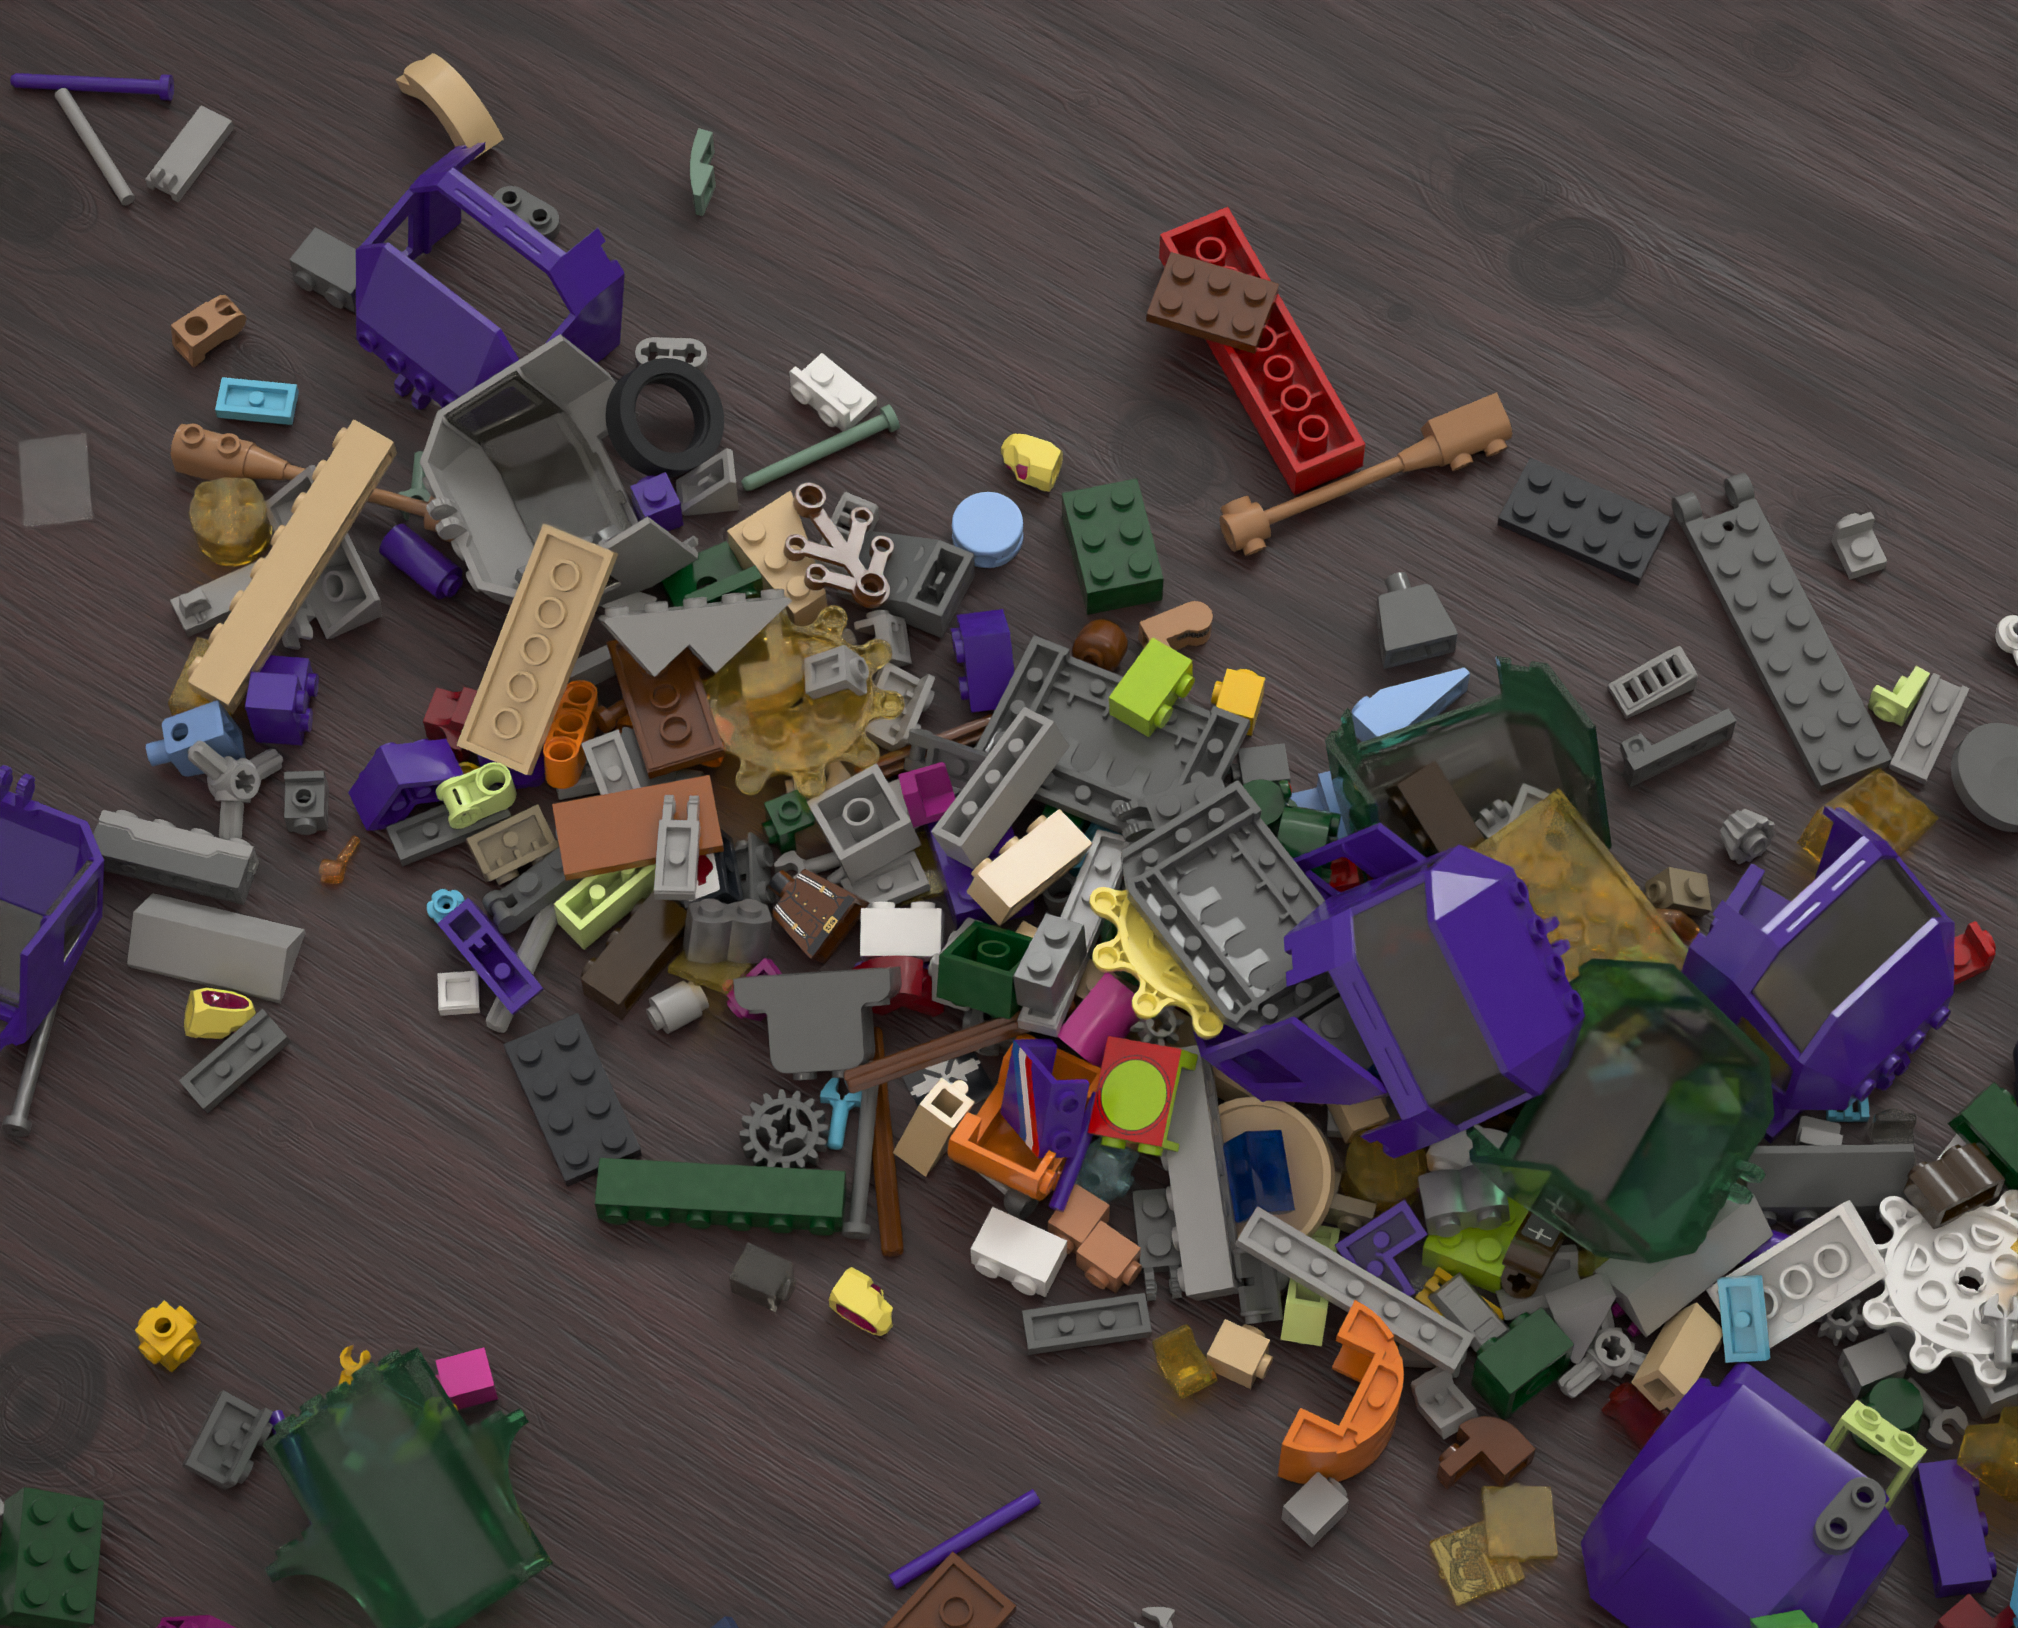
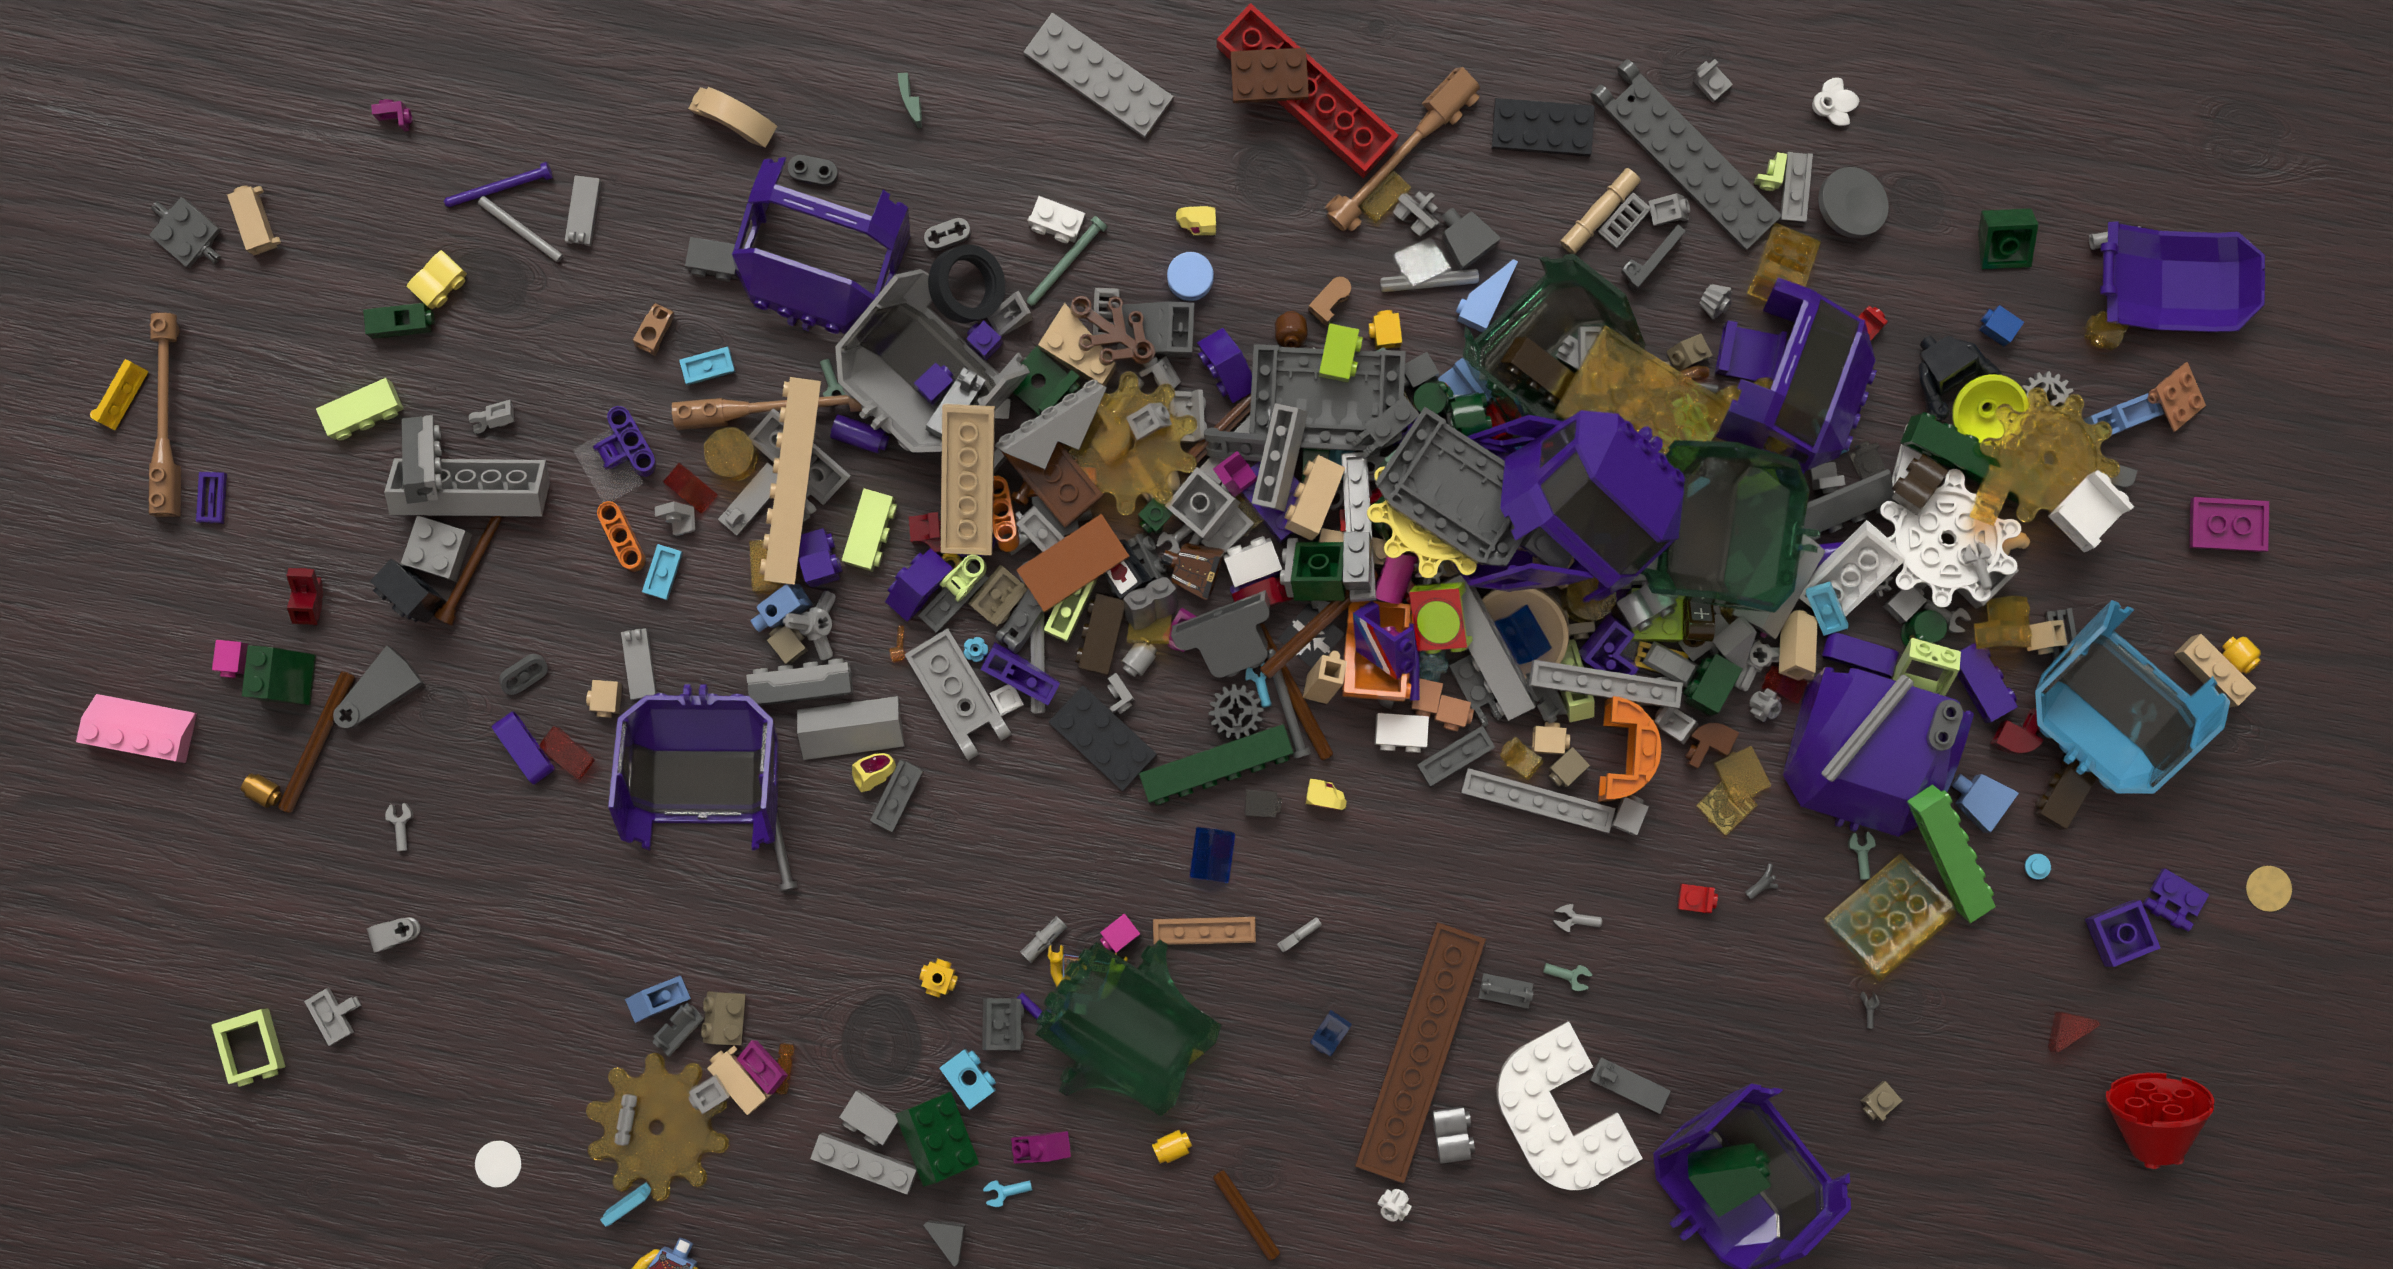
camera: 25 degrees left, 20 degrees up
(21, 556) = (616, 525): none -> orange beam
(58, 639) = (662, 572): none -> medium azure plate
(82, 457) = (619, 450): none -> dark purple beam
(117, 568) = (678, 514): none -> light grey bracket
(128, 1478) = (954, 1073): none -> medium azure brick
(154, 549) = (690, 488): none -> clear red slope
(183, 796) = (787, 643): none -> dark tan brick
(306, 802) = (855, 610): dark grey brick -> none
(367, 1339) = (1043, 939): none -> light grey pin
(373, 691) = (869, 530): none -> yellowish green brick
(385, 937) = (950, 683): none -> light grey hinge
(561, 516) = (934, 383): none -> dark purple brick
(597, 1430) = (1205, 930): none -> medium nougat tile
(628, 1052) = (1118, 689): none -> light grey bracket
(658, 1323) = (1212, 854): none -> clear blue panel
(677, 852) = (1106, 573): light grey hinge -> none
(717, 1490) = (1298, 935): none -> light grey bar
(964, 1539) = (1439, 909): dark purple bar -> none
(978, 236) = (1098, 75): none -> light grey plate
(1112, 546) = (1270, 259): dark green brick -> none
(1184, 1436) = (1538, 800): none -> light grey plate
(1250, 1405) = (1567, 768): none -> dark tan brick
(1314, 529) = (1384, 196): none -> clear yellow tile
(1330, 630) = (1421, 262): none -> clear piece
(1331, 659) = (1450, 278): none -> light grey axle
(1358, 578) = (1425, 219): none -> light grey hips
(1594, 1429) = (1765, 705): none -> light grey gear
(1627, 654) = (1600, 211): none -> tan piece
(1724, 1473) = (1867, 728): none -> light grey axle
(1726, 689) = (1669, 209): none -> light grey bracket

